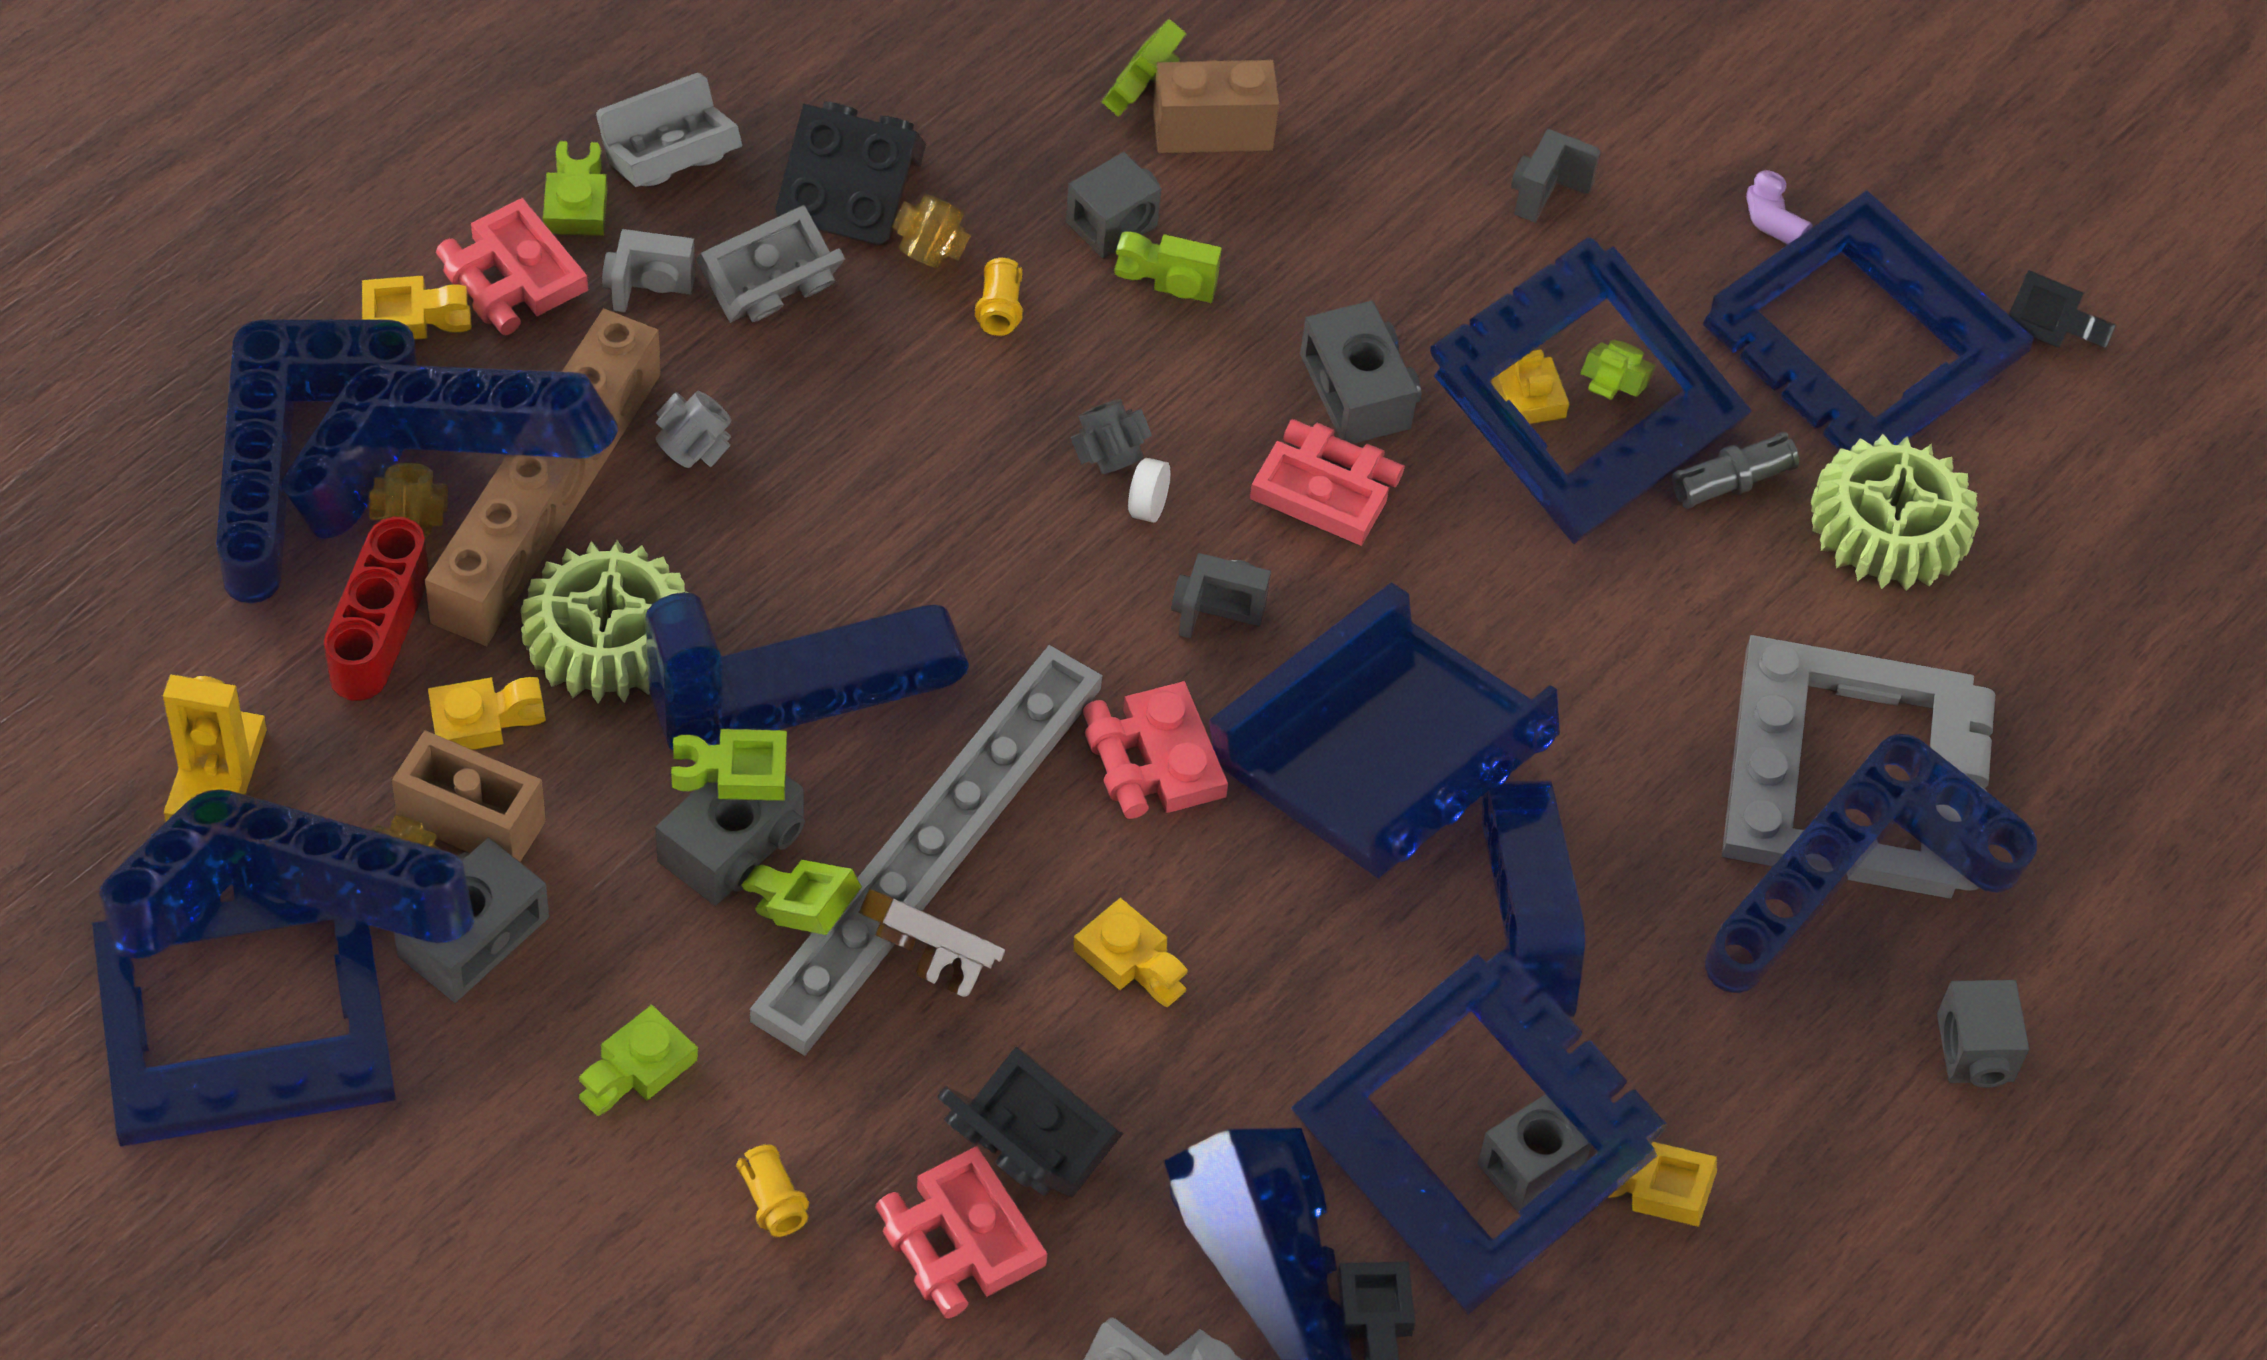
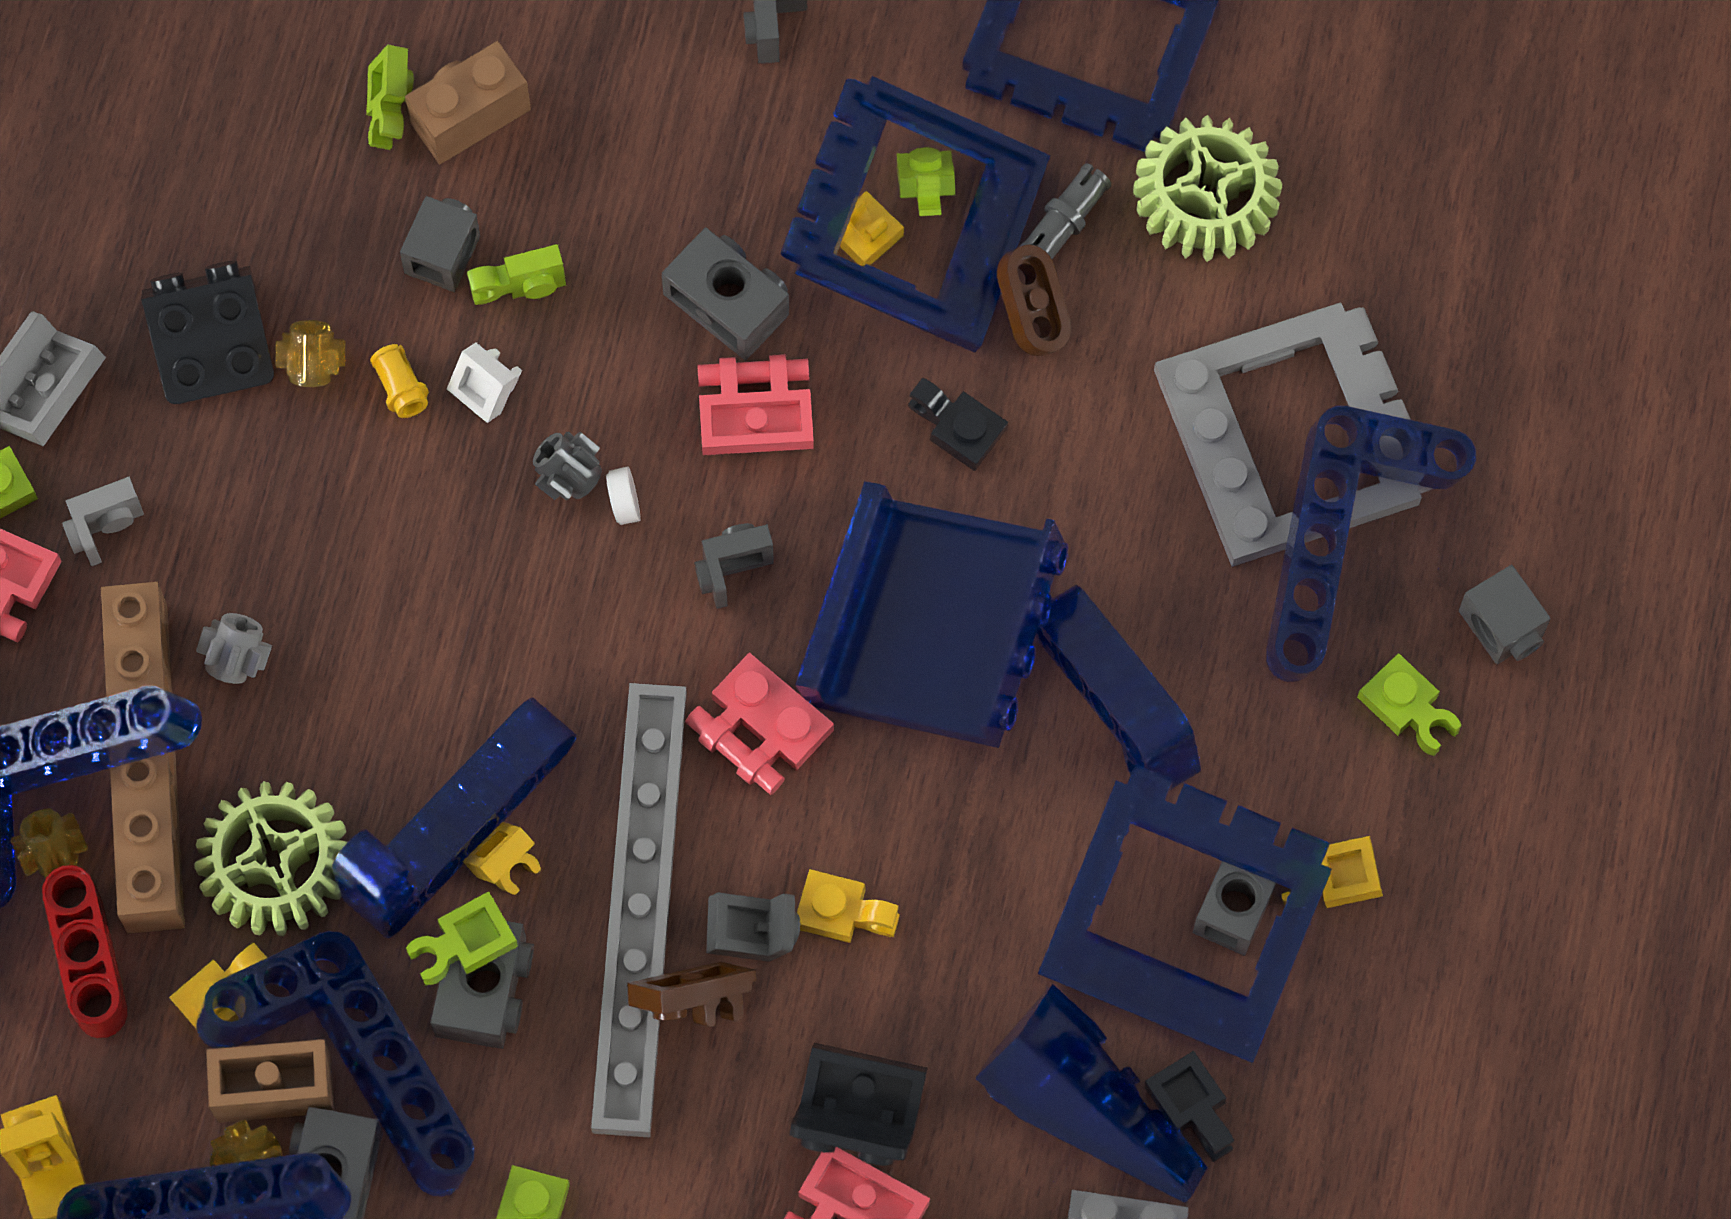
camera: 25 degrees left, 15 degrees up
(562, 745) = (355, 1042): none -> clear blue beam
(768, 264) = (199, 459): light grey bracket -> none
(807, 898) = (580, 1015): lime plate -> none
(825, 729) = (499, 853): none -> yellow tile
(1028, 915) = (752, 926): none -> dark grey bracket
(1079, 333) = (483, 381): none -> white tile
(1519, 599) = (962, 427): none -> black plate
(1660, 525) = (1035, 301): none -> reddish brown plate
(1832, 1060) = (1405, 698): none -> lime plate

